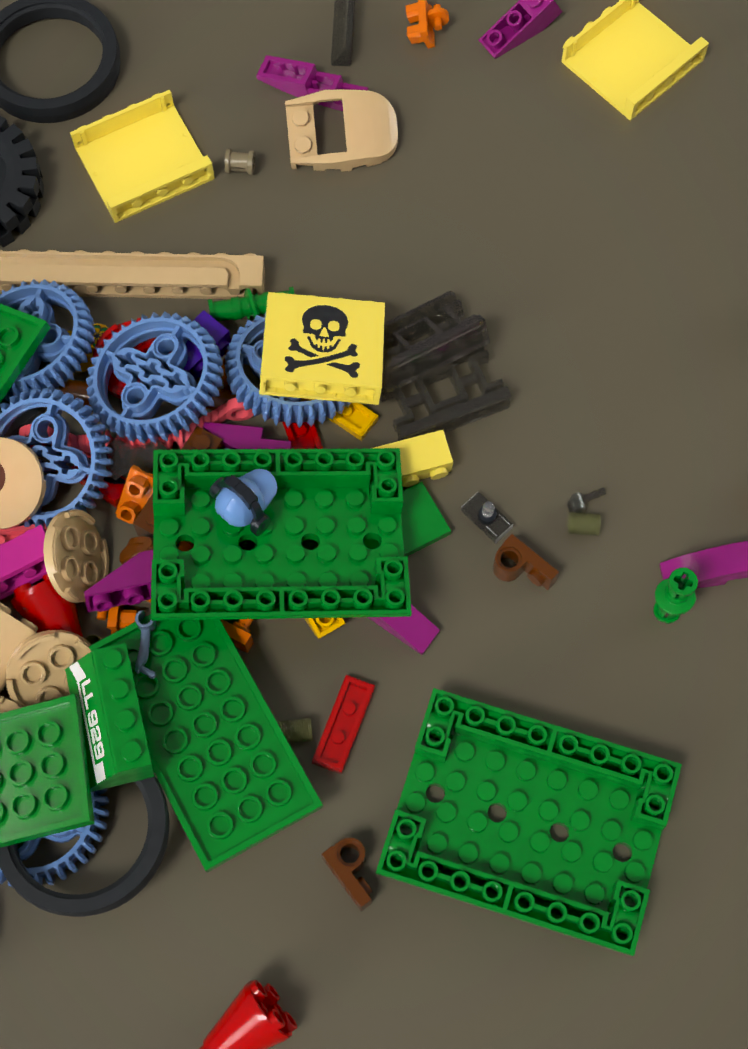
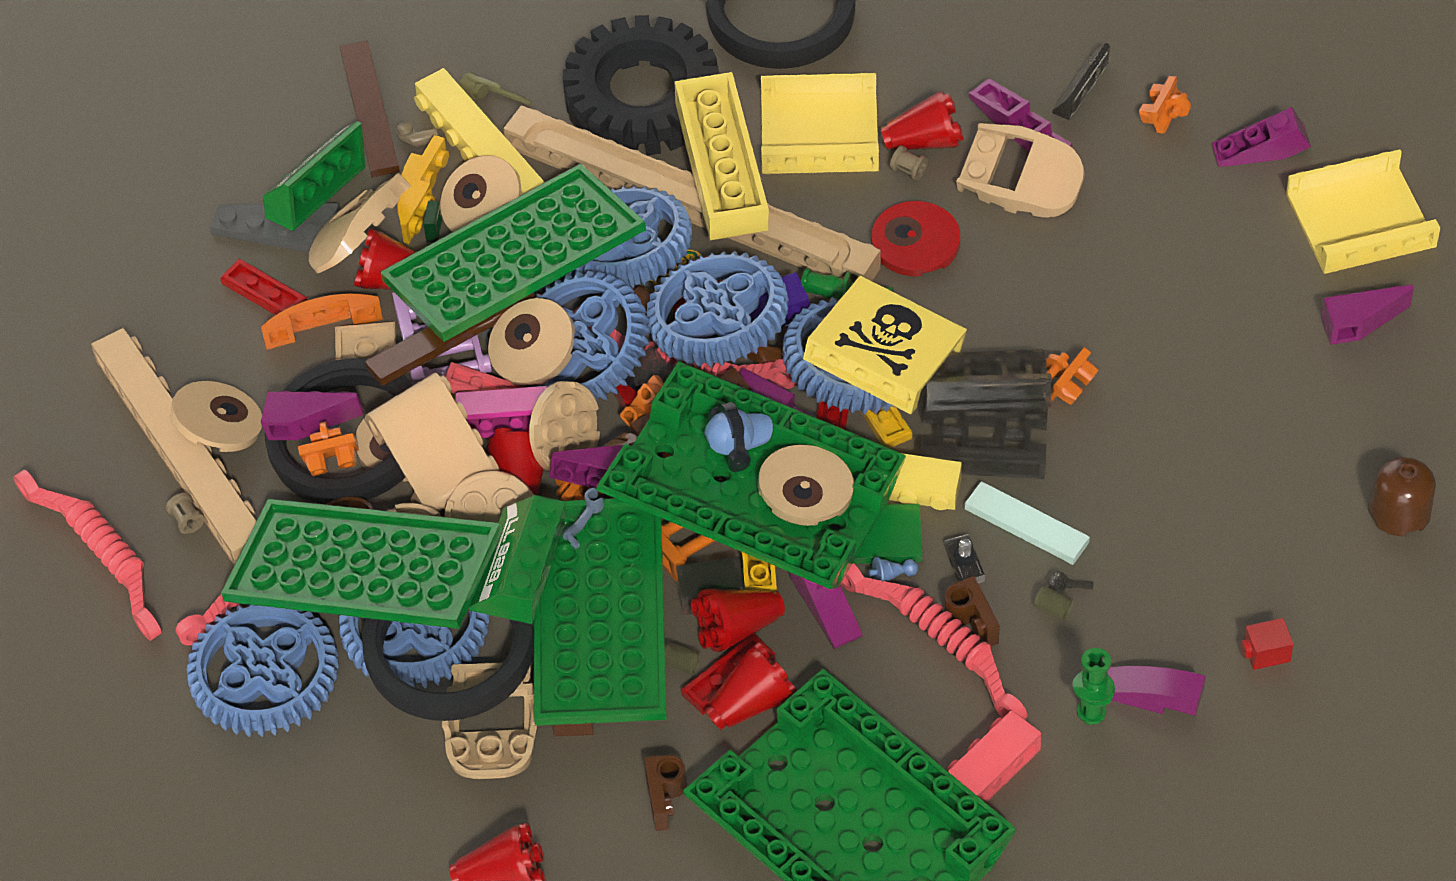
camera: 30 degrees right, 15 degrees down
(80, 226) = (721, 156): none -> light yellow brick
(172, 912) = (489, 752): none -> tan slope
(237, 121) = (925, 126): none -> red cone
(282, 229) = (916, 238): none -> red tile
(284, 646) = (715, 574): none -> clear smoke brick
(323, 668) = (734, 615): none -> red cone
(329, 519) = (805, 484): none -> tan tile
(376, 737) = (750, 689): none -> red cone
(427, 560) = (887, 570): none -> medium blue piece
(478, 299) = (1080, 368): none -> orange hips
(519, 457) = (1027, 523): none -> light aqua tile
(554, 607) = (921, 609): none -> coral piece
(618, 697) = (997, 756): none -> coral brick
(678, 150) = (1359, 314): none -> magenta slope

